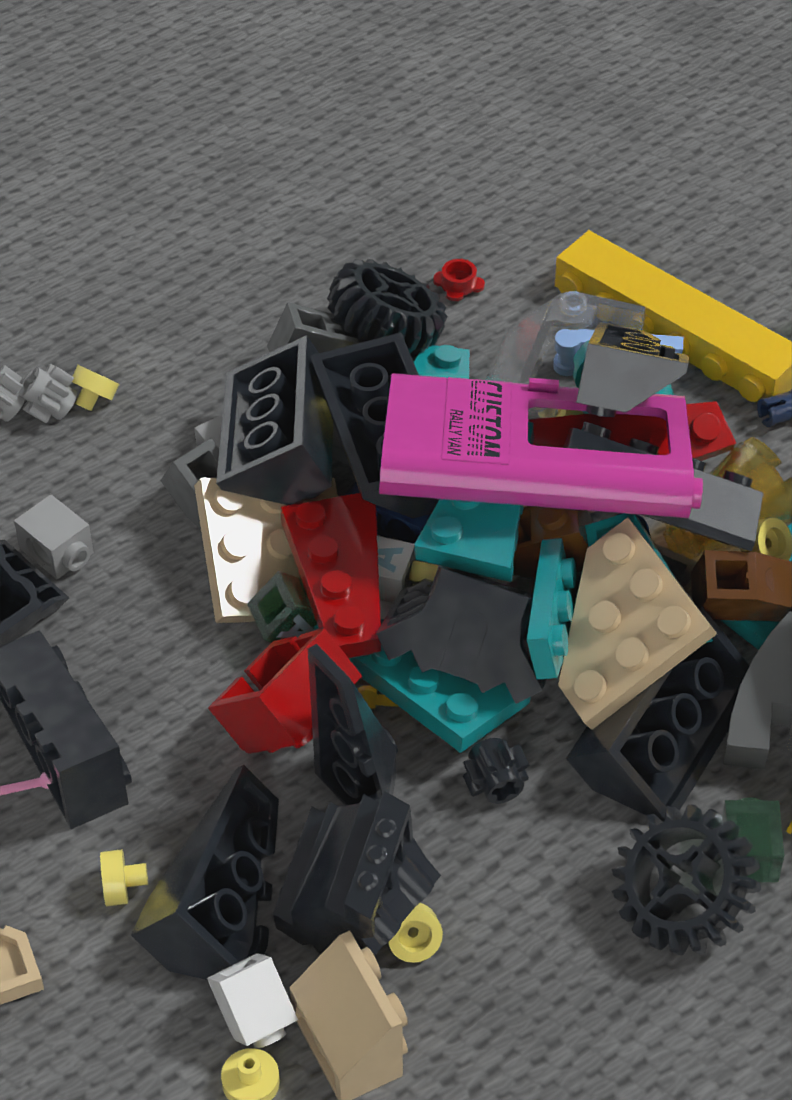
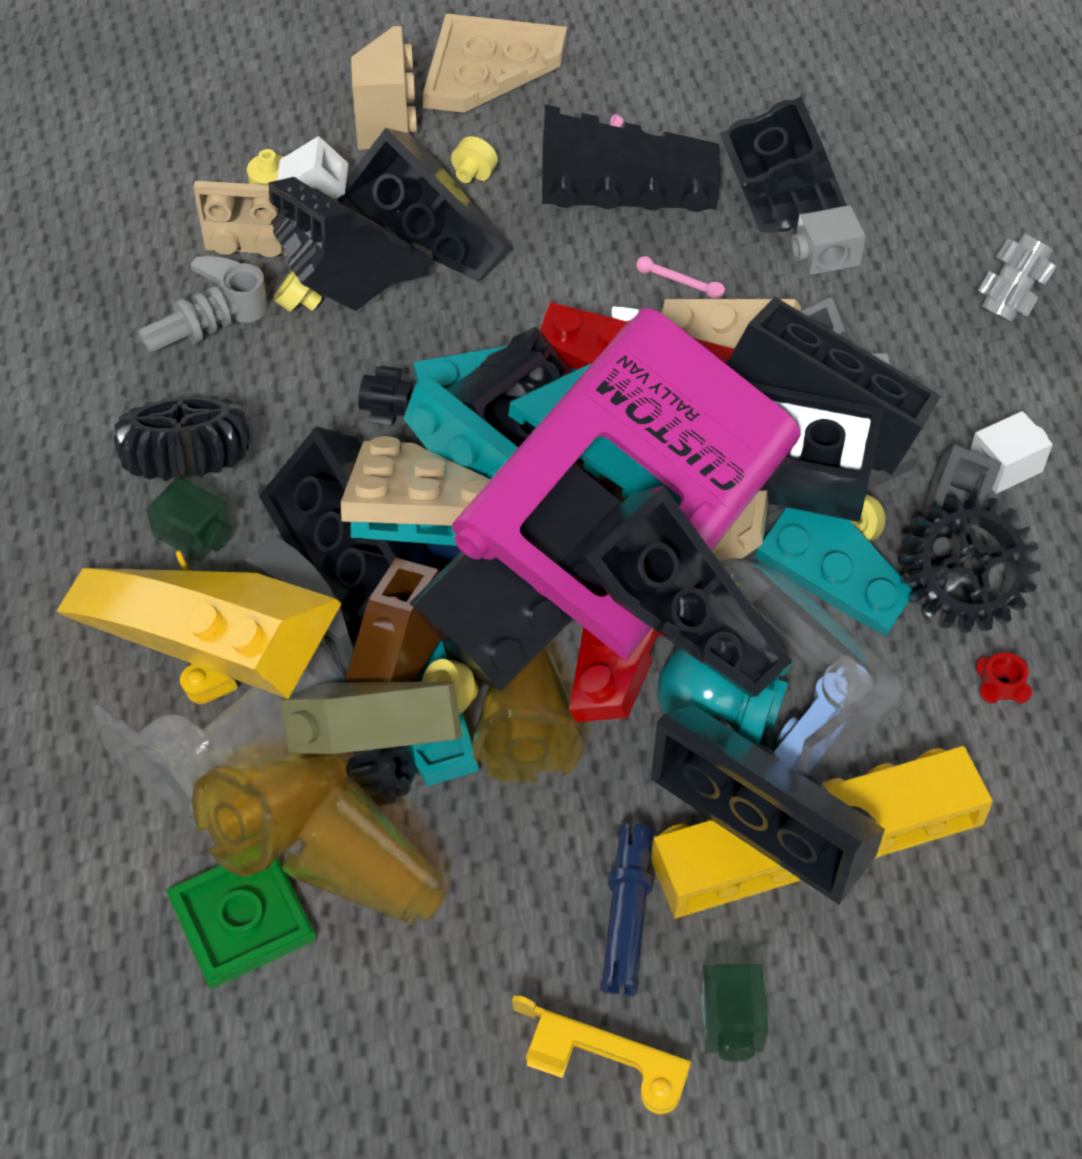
camera: 120 degrees right, 5 degrees up
(79, 991) = (383, 88): none -> tan slope
(92, 386) = (1006, 332): light yellow tile -> none
(166, 673) = (646, 265): none -> bright pink hinge
(235, 334) = (1017, 445): none -> white brick
(282, 707) = (538, 269): red piece -> none
(348, 741) = (446, 275): black wedge -> none
(487, 985) = (238, 296): none -> light grey piece
(711, 306) = (764, 801): none -> black slope

